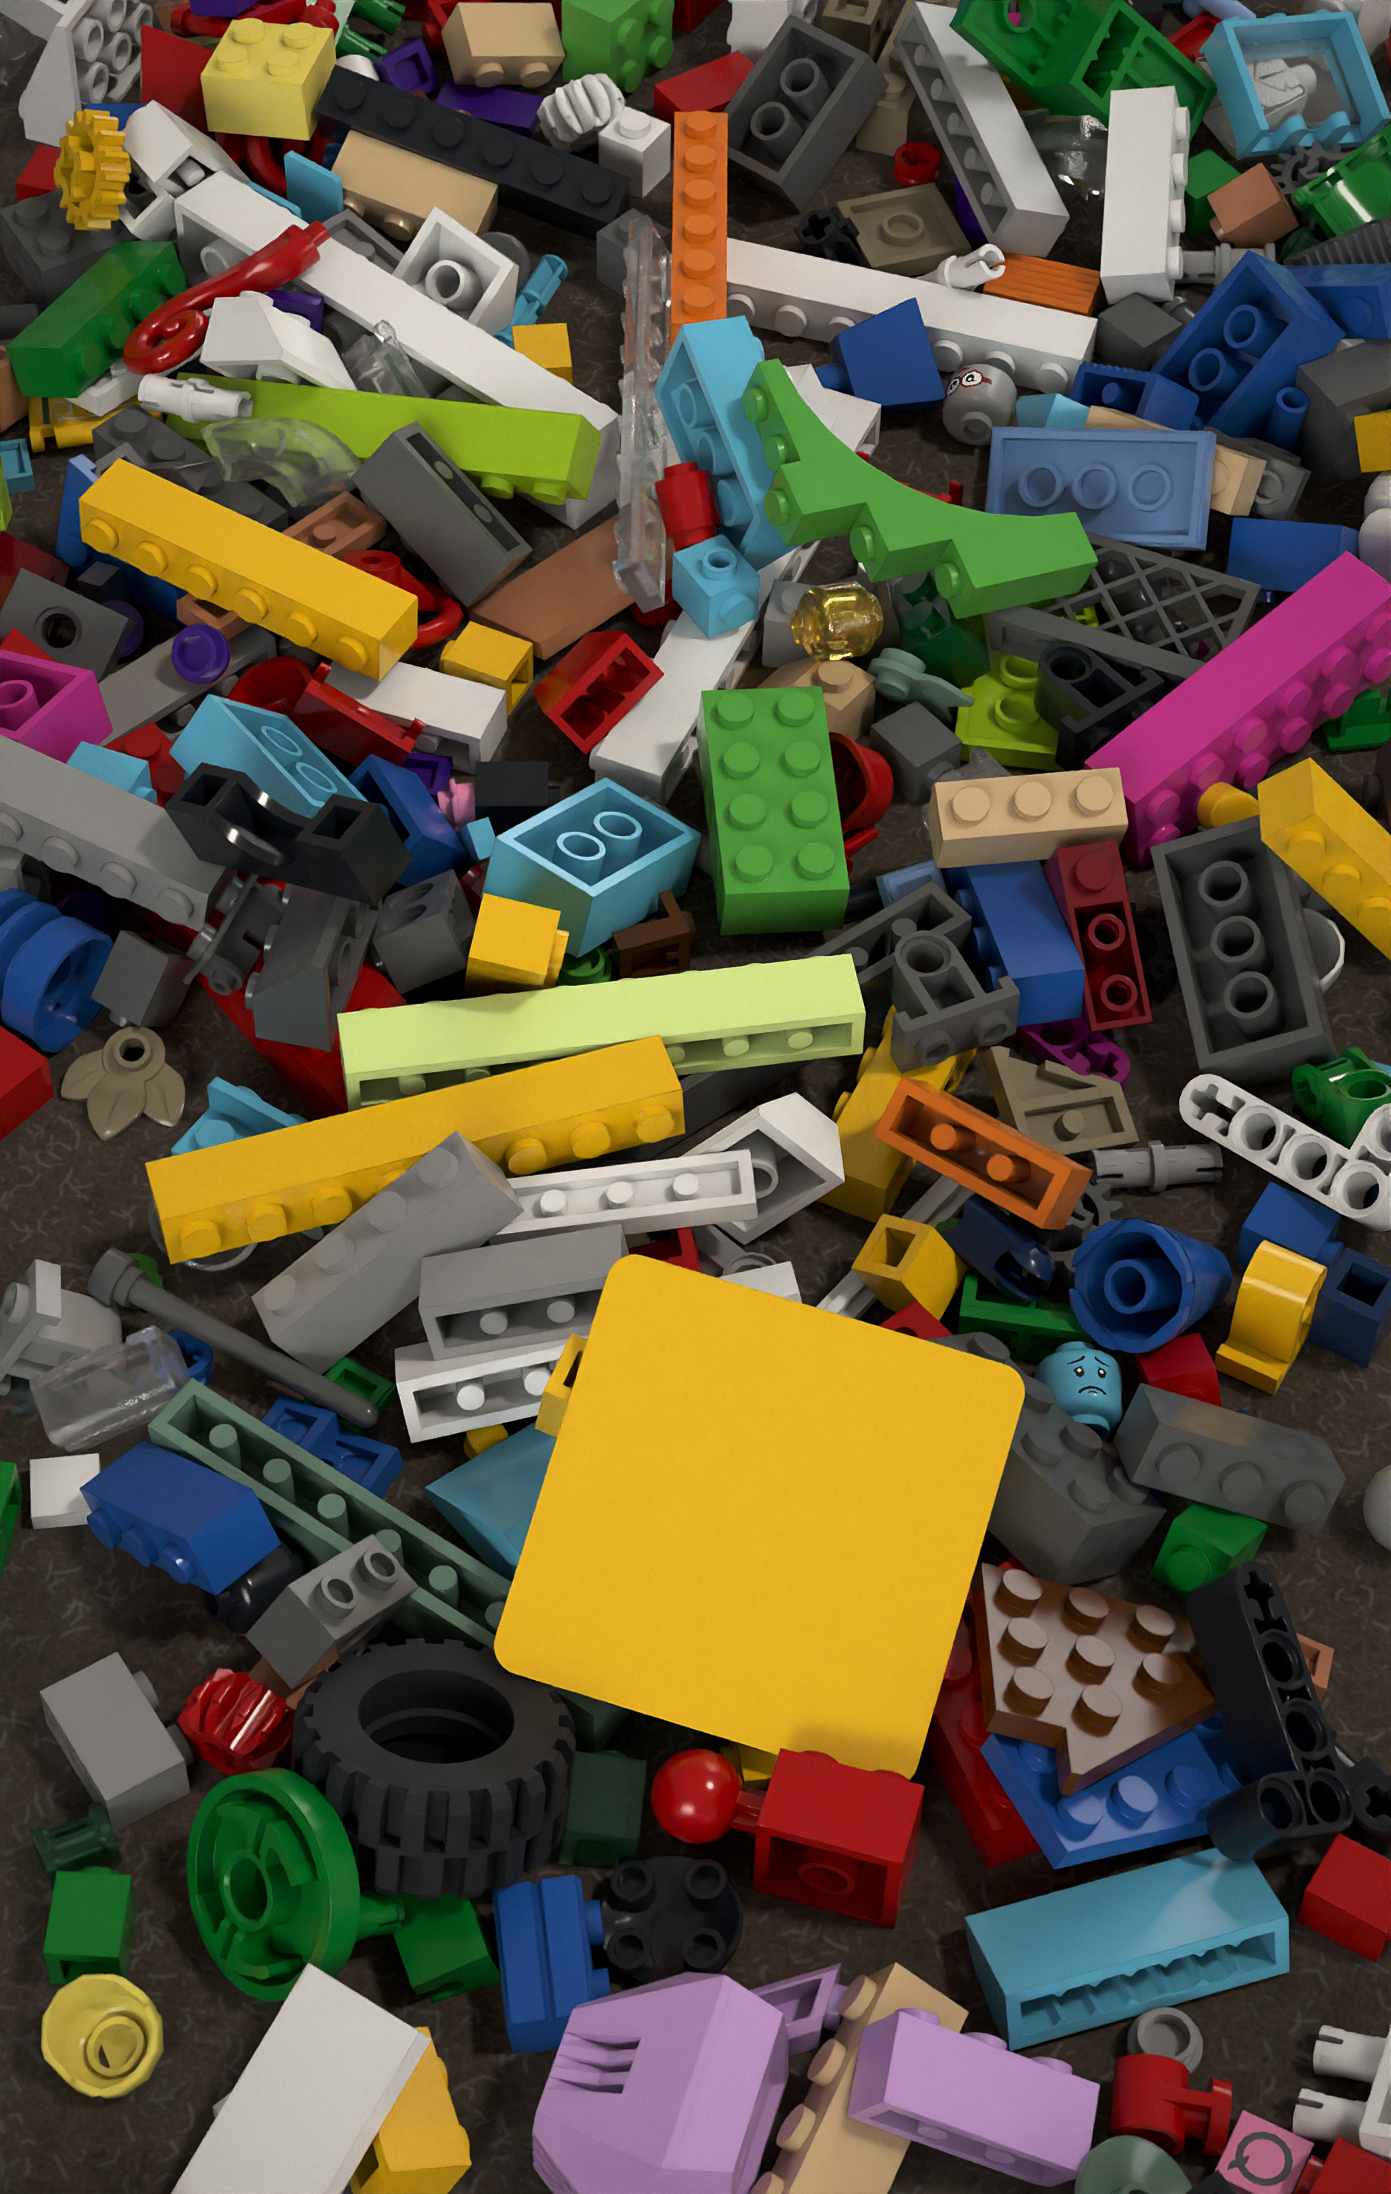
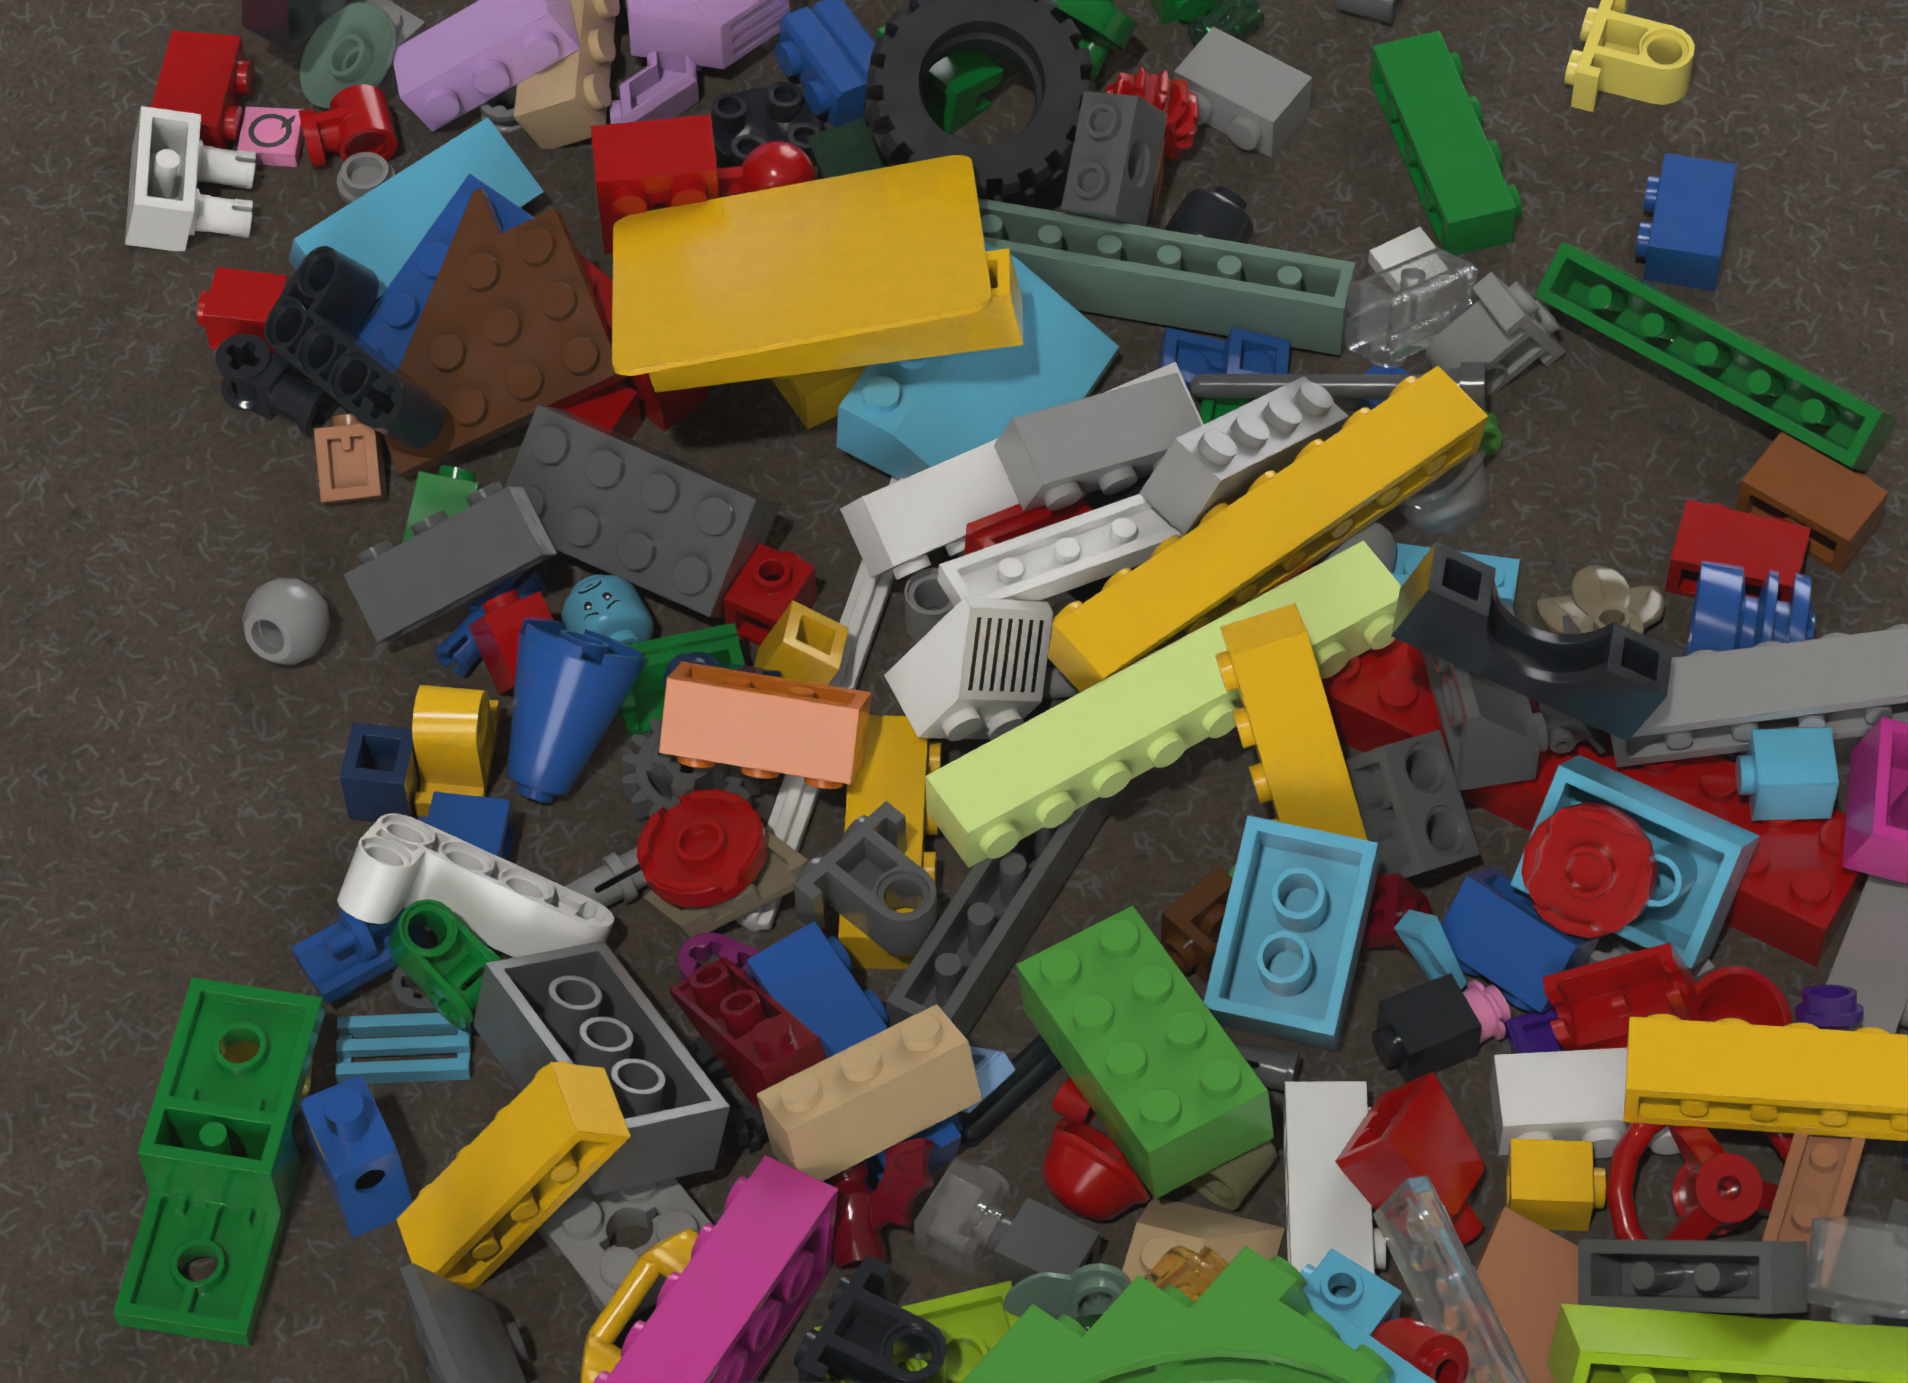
camera: 160 degrees right, 5 degrees up
(179, 1517) = (1279, 206): blue brick -> none
(324, 768) = (1589, 869): none -> red tile
(1080, 1108) = (702, 848): none -> red tile

